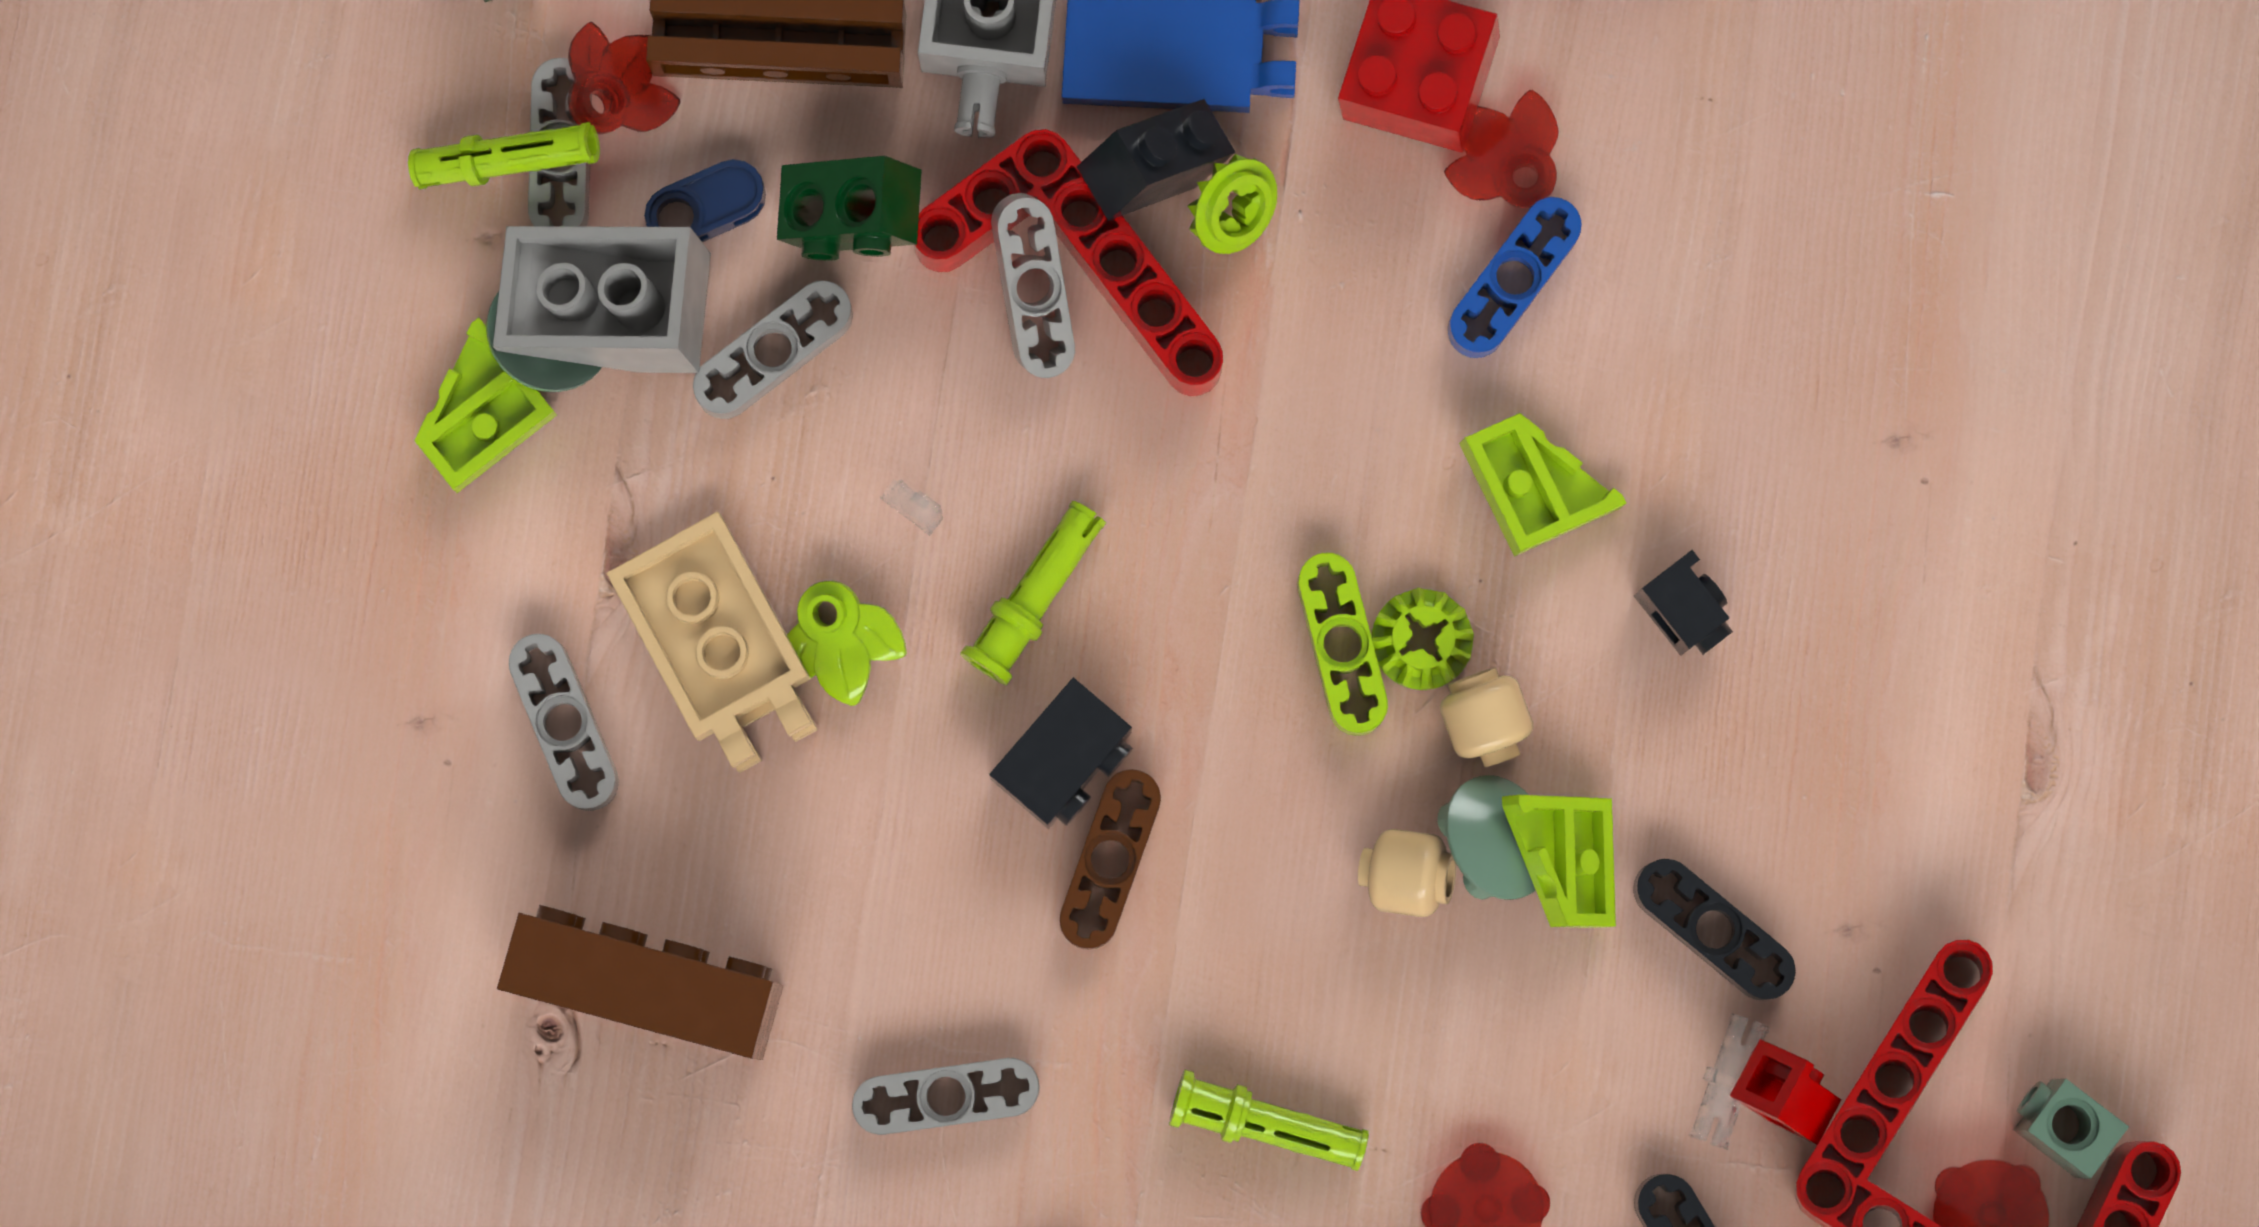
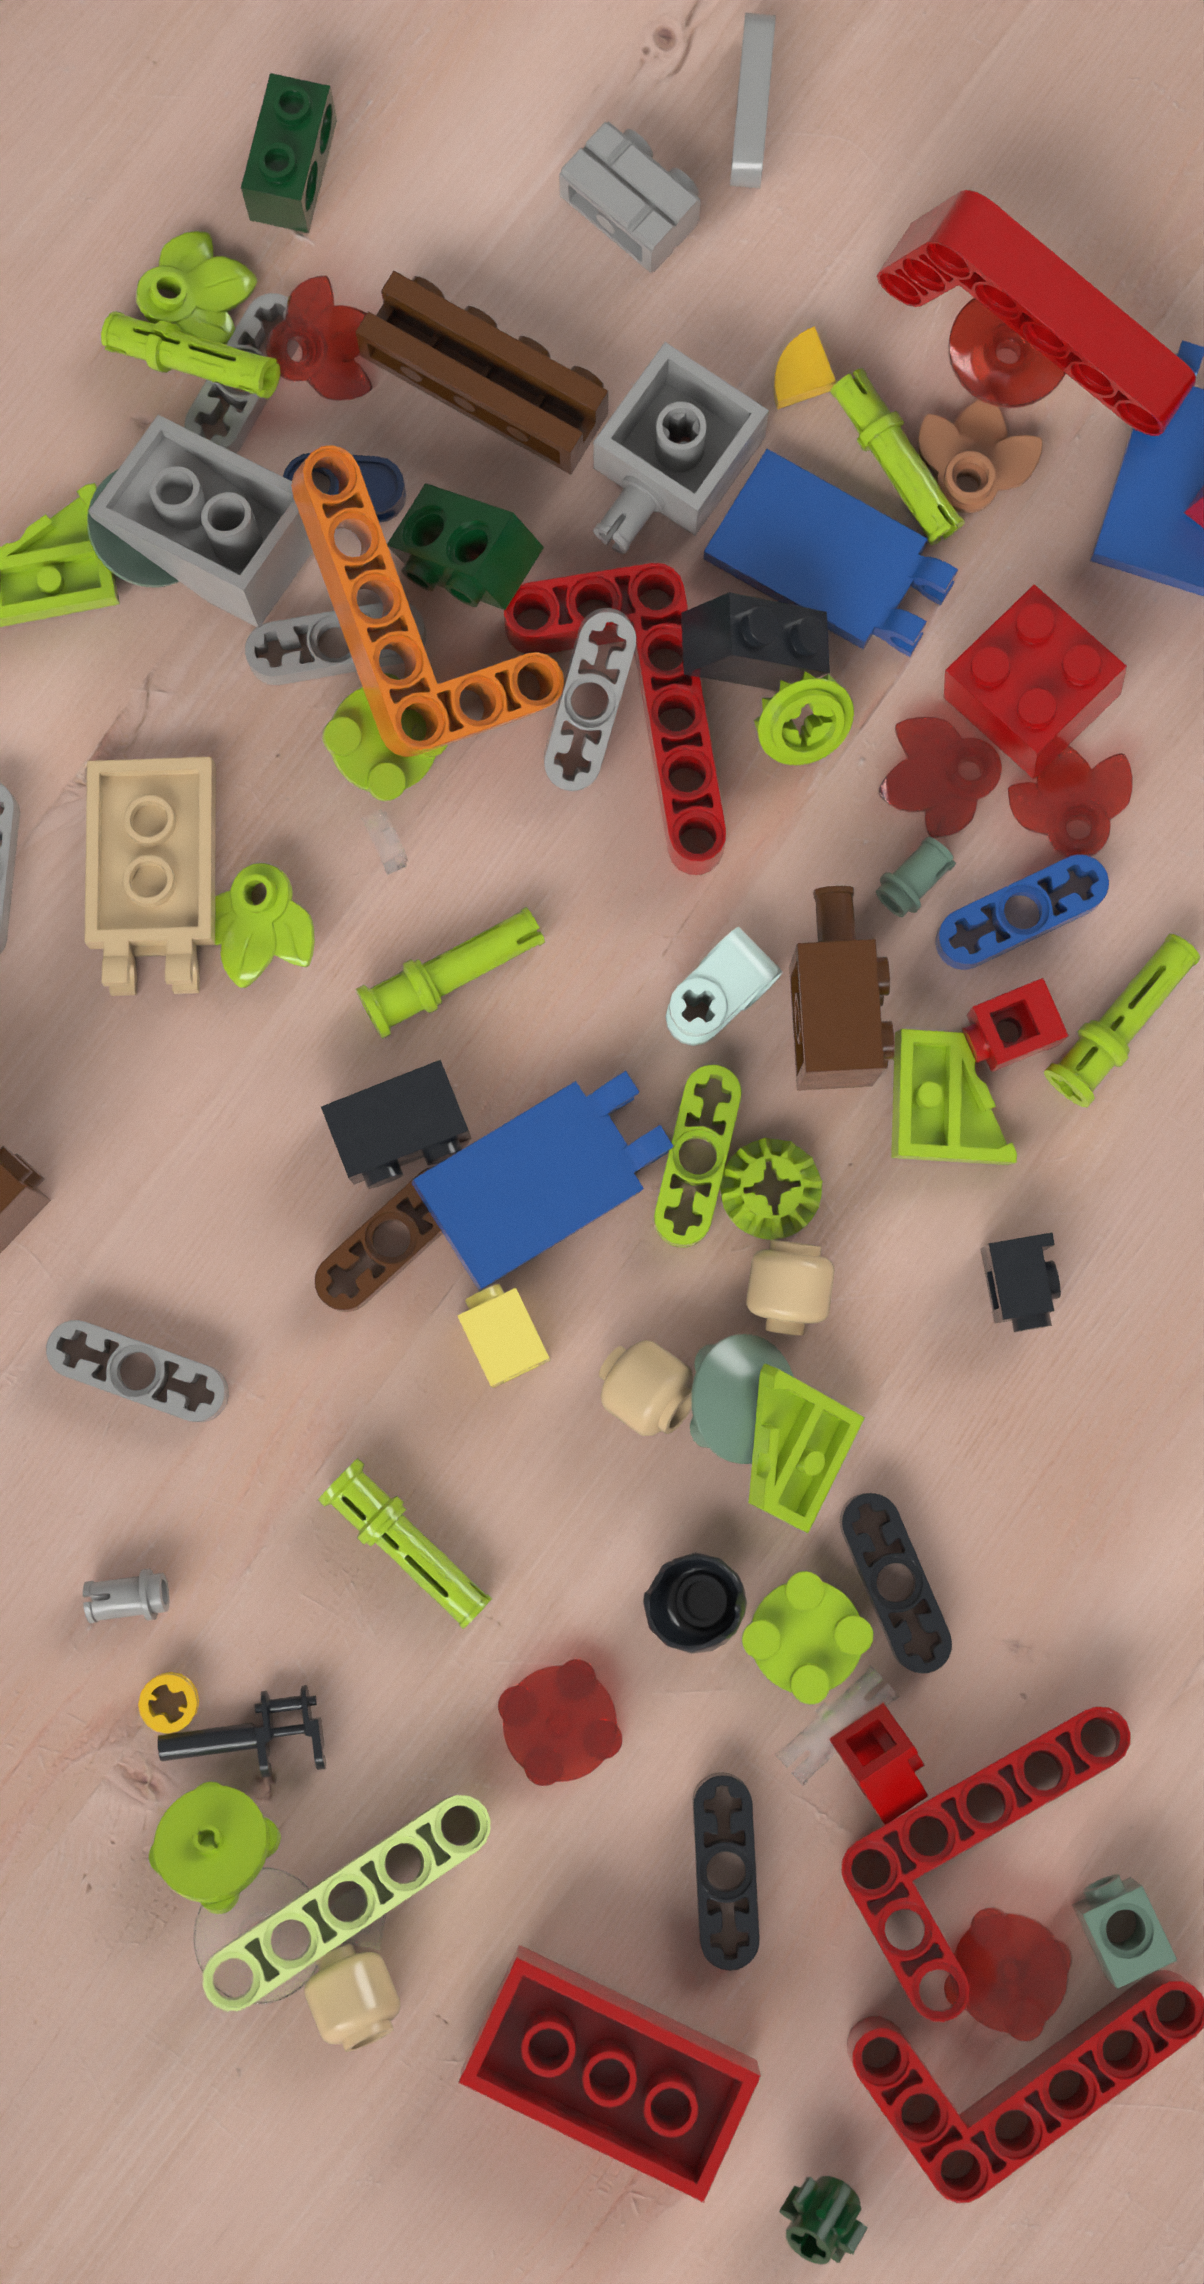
camera: 30 degrees right, 0 degrees up
(476, 83) = (204, 287): none -> lime plate
(830, 309) = (396, 628): none -> orange beam
(864, 414) = (363, 756): none -> lime piece
(1213, 738) = (538, 1179): none -> blue tile
(1255, 892) = (502, 1334): none -> light yellow brick
(1286, 477) = (727, 982): none -> light aqua piece
(1369, 196) = (931, 775): none -> clear red plate
(1398, 442) = (838, 1001): none -> reddish brown brick
(1404, 295) = (915, 877): none -> sand green pin
(1551, 1039) = (695, 1603): none -> black hair
(1575, 366) = (1029, 1010): none -> red brick
(1653, 359) = (1100, 1042): none -> lime pin
(1662, 1018) = (807, 1637): none -> lime piece

